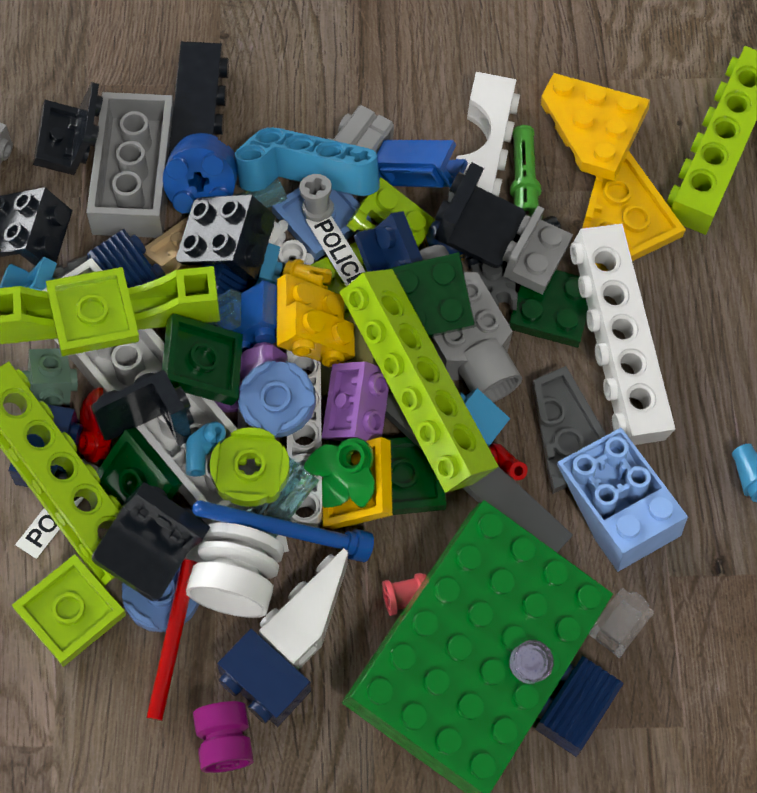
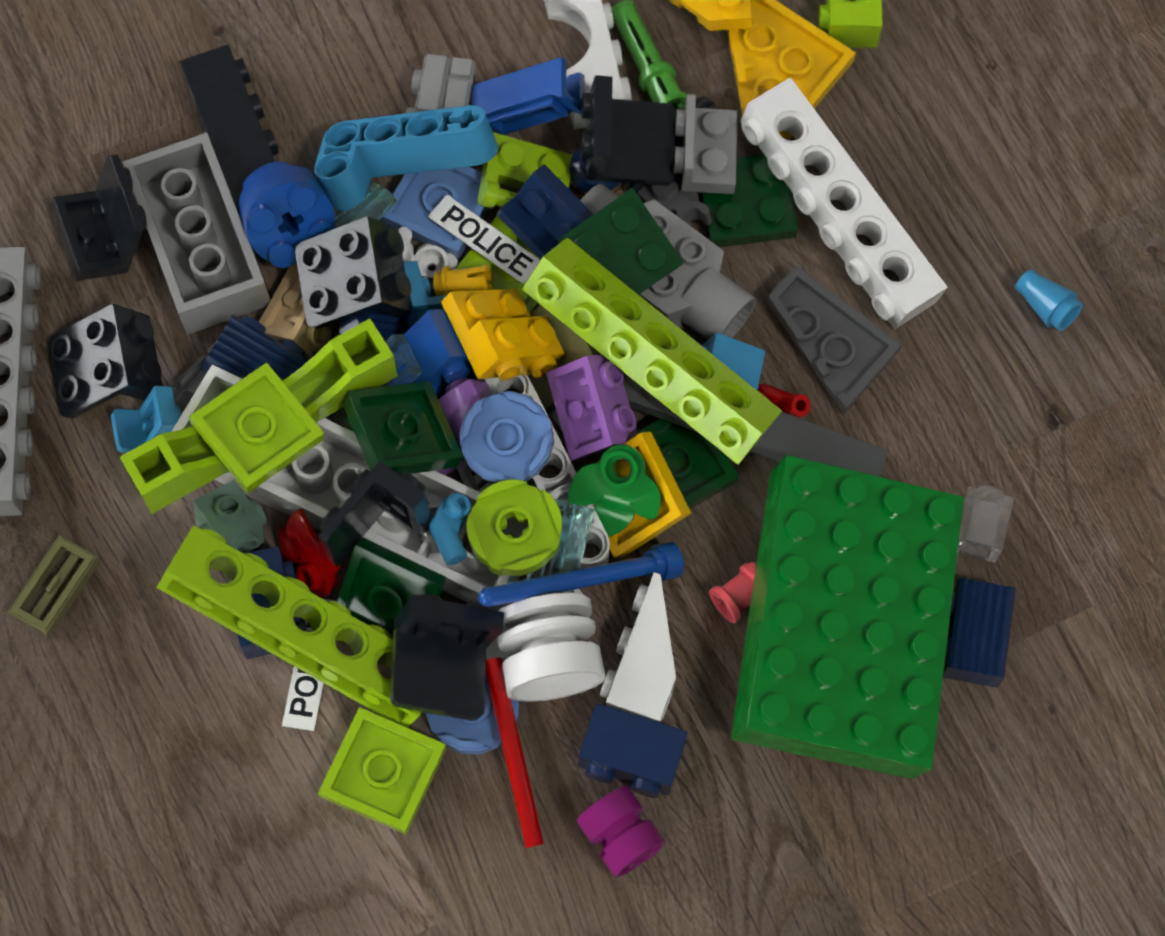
camera: 20 degrees left, 5 degrees up
(316, 193) = (430, 182): light grey bush -> none
(531, 662) = (915, 607): tile -> none
(622, 499) = (923, 388): light blue slope -> none

